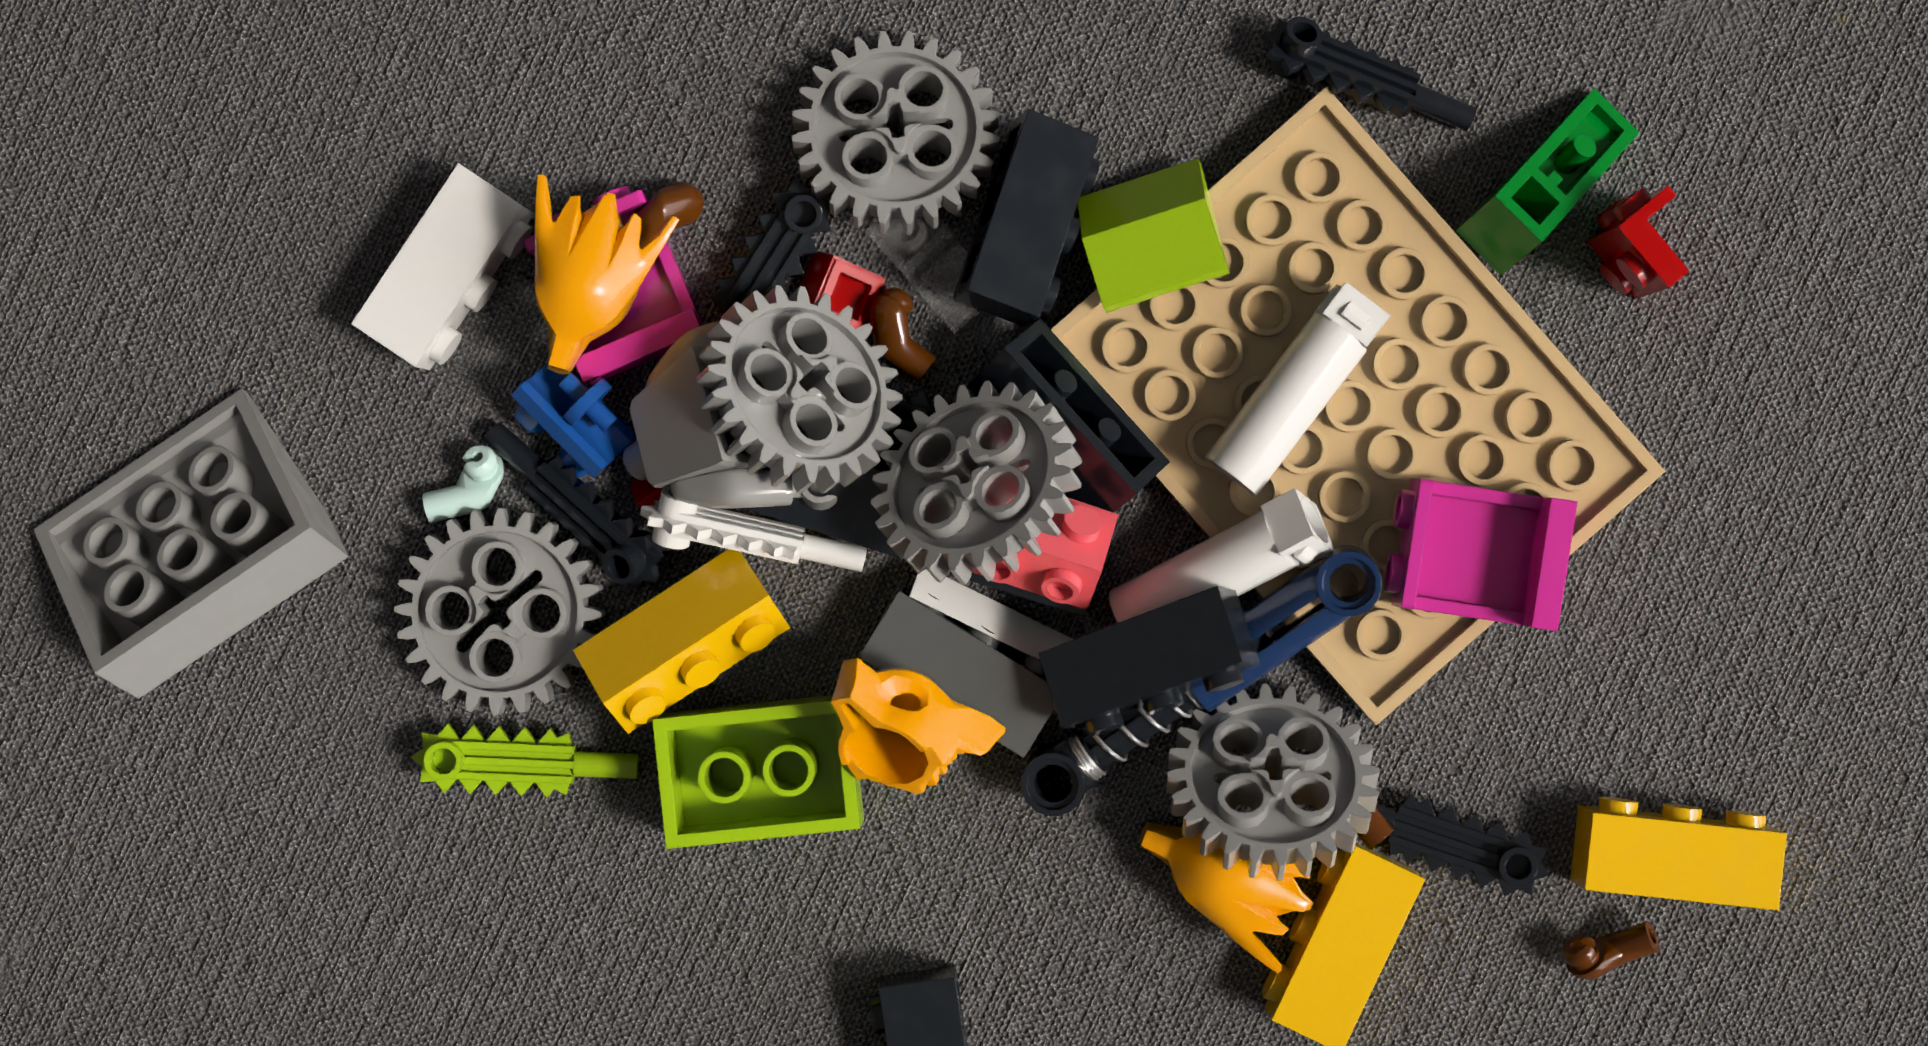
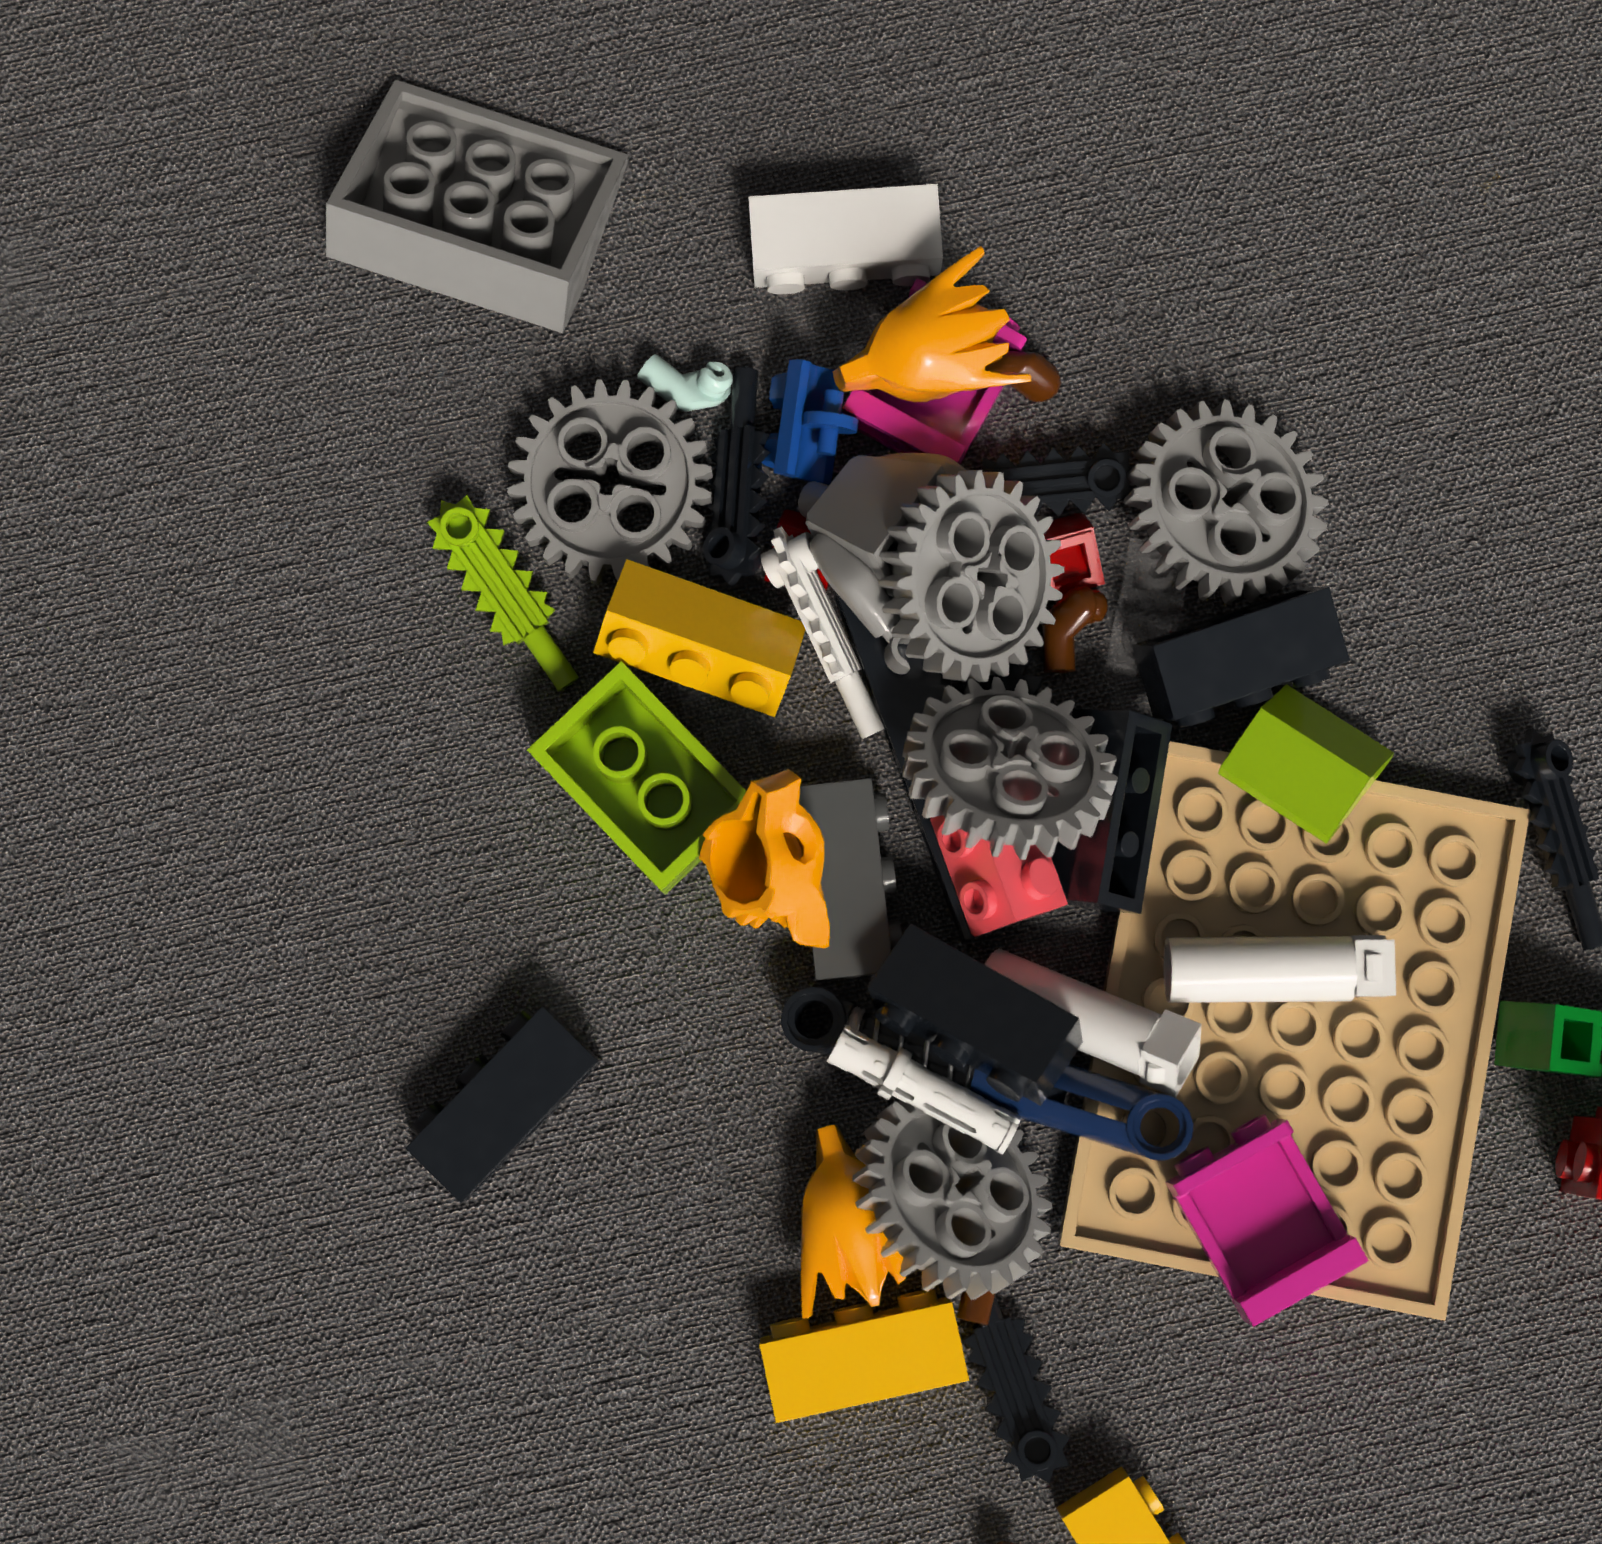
camera: 60 degrees right, 5 degrees down
(980, 610) = (903, 856): white sticker -> none
(1185, 738) = (936, 1095): none -> white pin

